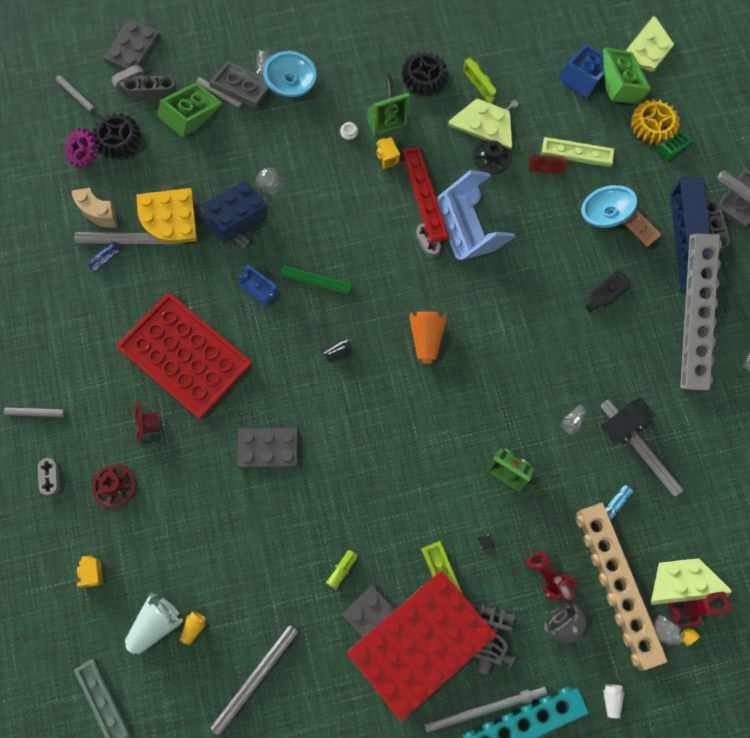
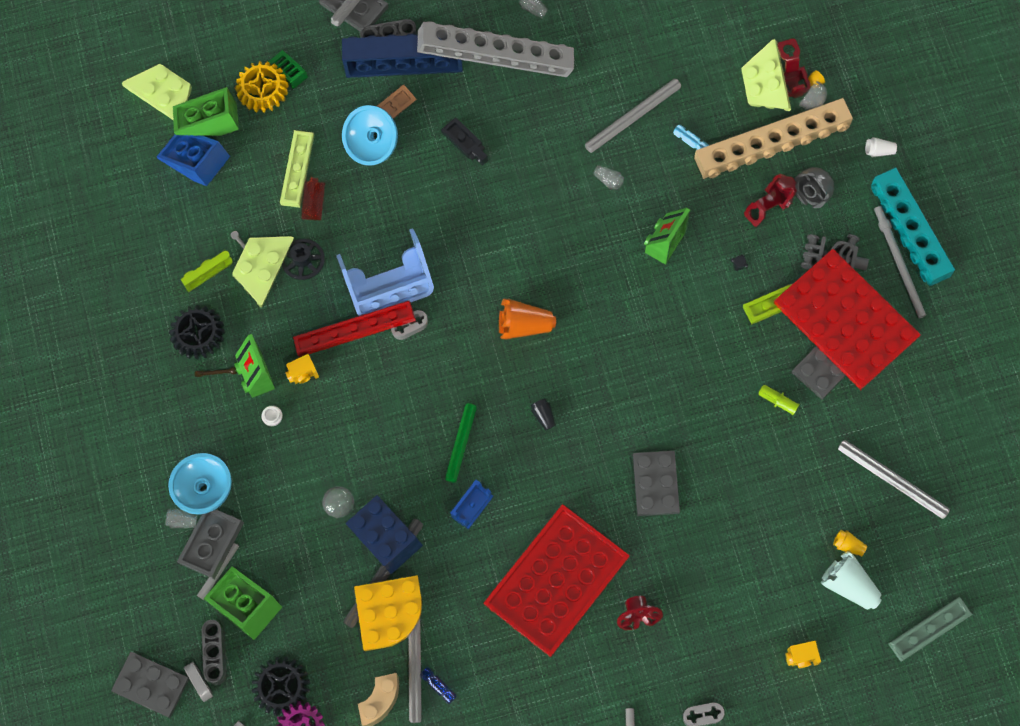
camera: 85 degrees left, 0 degrees up
(112, 484) = (707, 643): dark red wheel -> none
(632, 417) = (610, 122): black brick -> none

